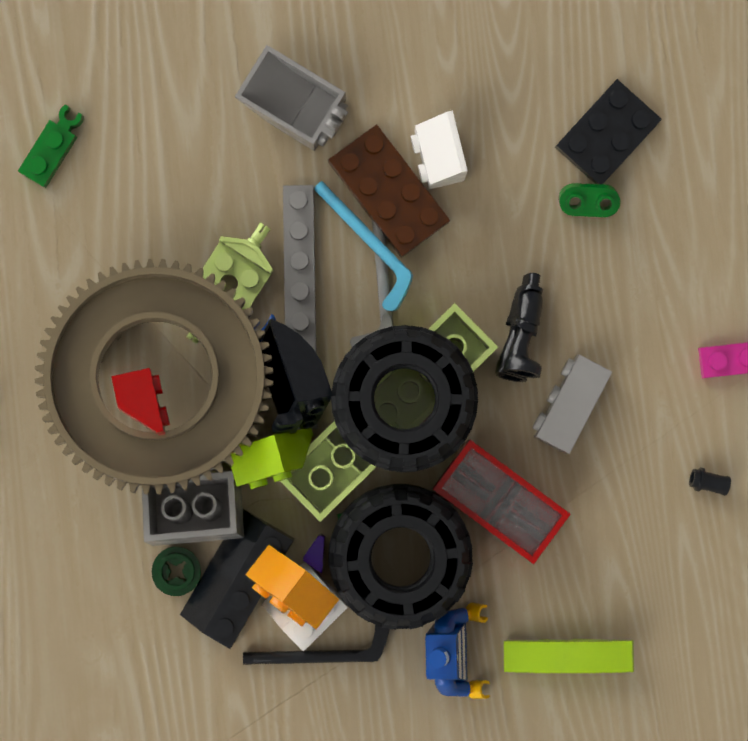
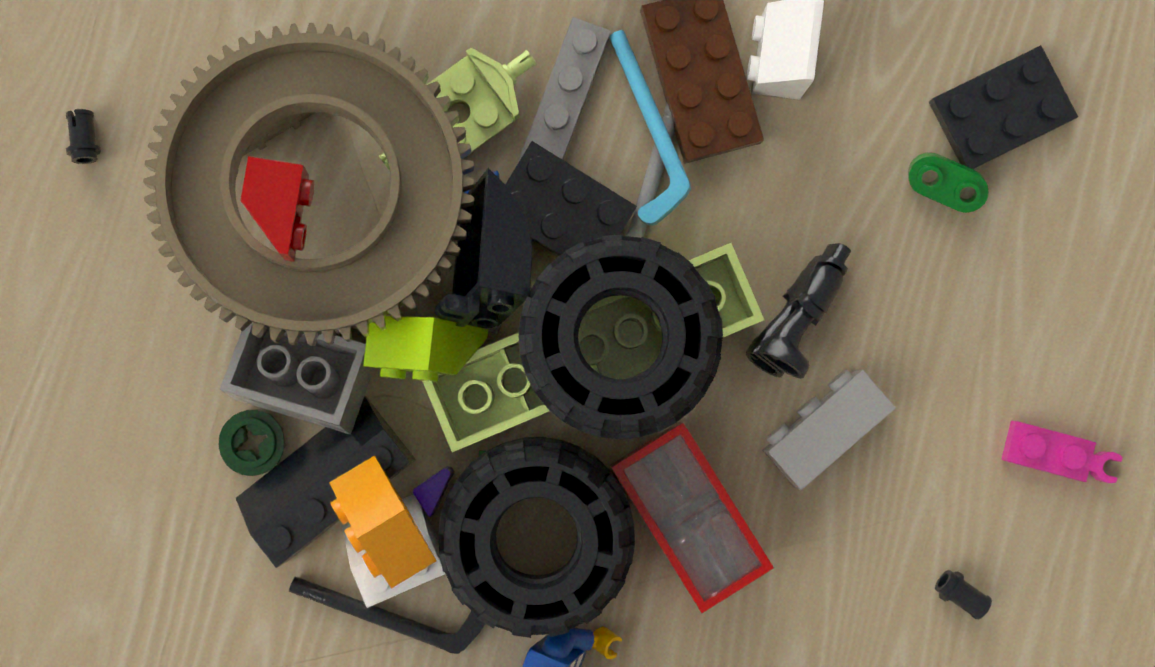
camera: 25 degrees right, 0 degrees up
(329, 320) = (563, 202): none -> black plate

